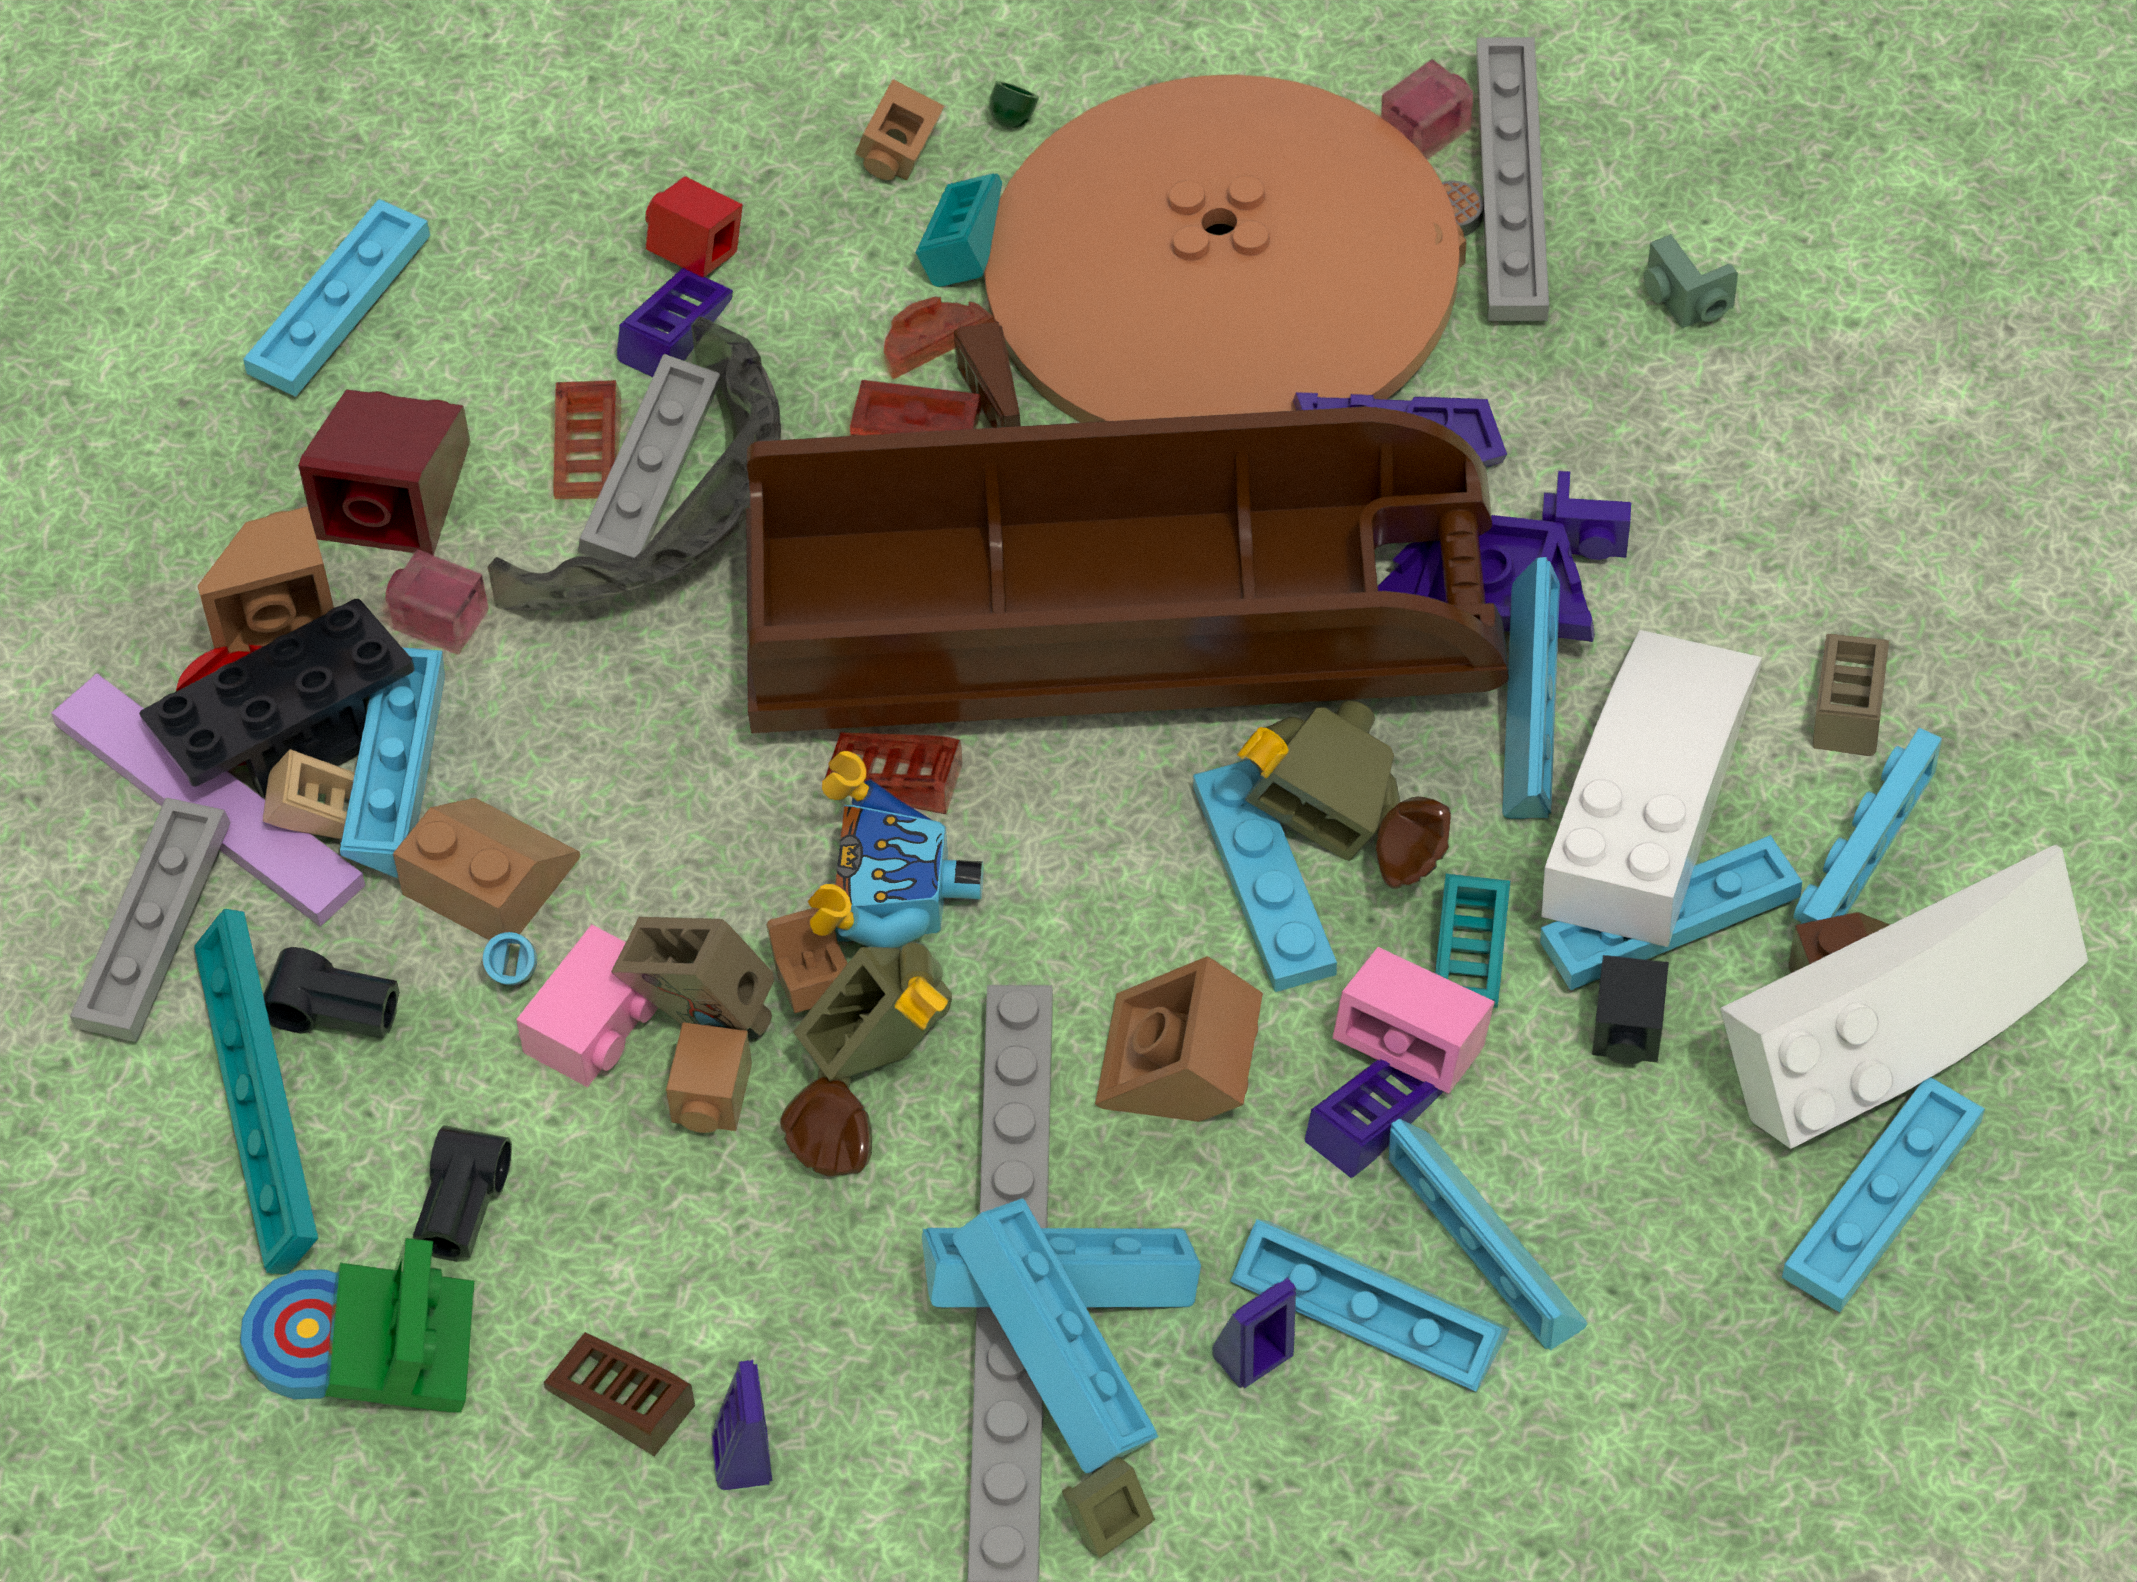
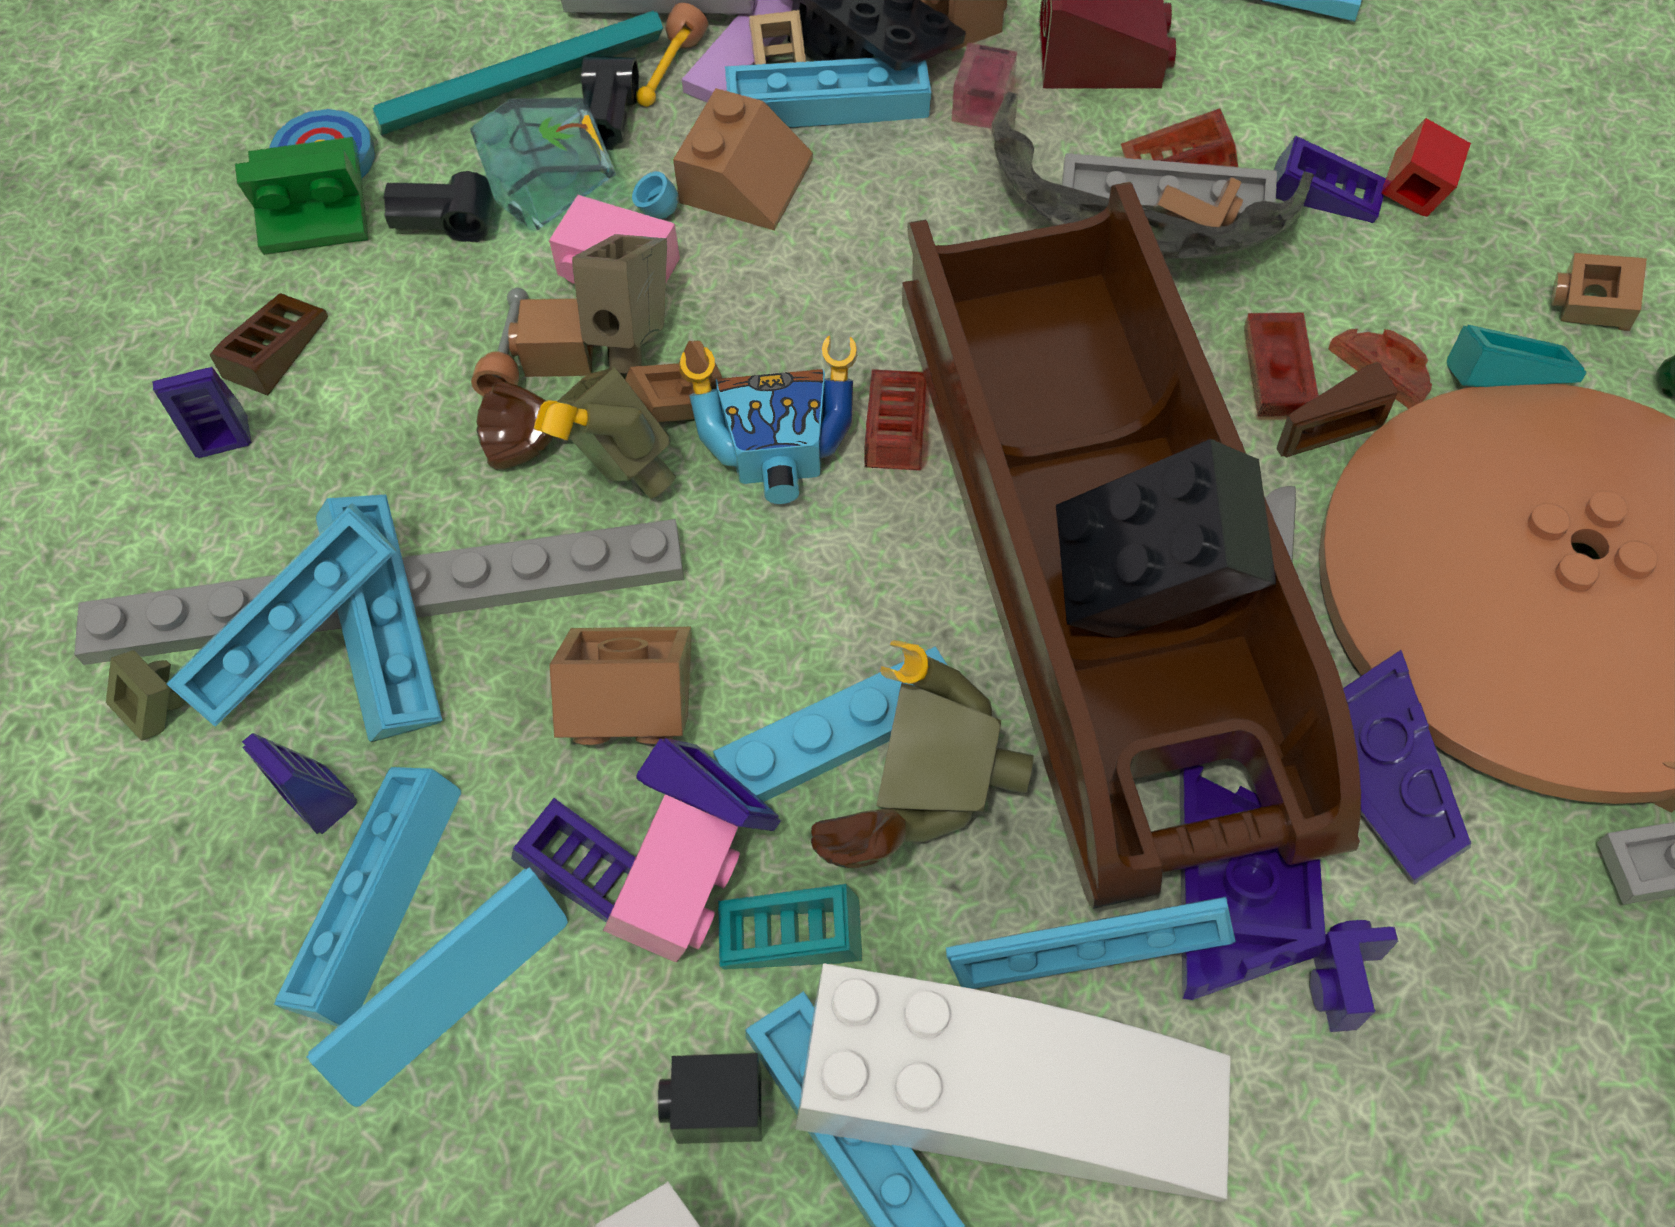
camera: 80 degrees right, 5 degrees up
(222, 893) = (680, 37): none -> hinge
(431, 1055) = (541, 156): none -> clear light blue slope
(718, 420) = (1184, 206): none -> medium nougat bracket
(737, 1145) = (499, 365): none -> nougat hinge
(1189, 510) = (1165, 541): none -> black brick
(1314, 987) = (698, 780): none -> dark purple slope

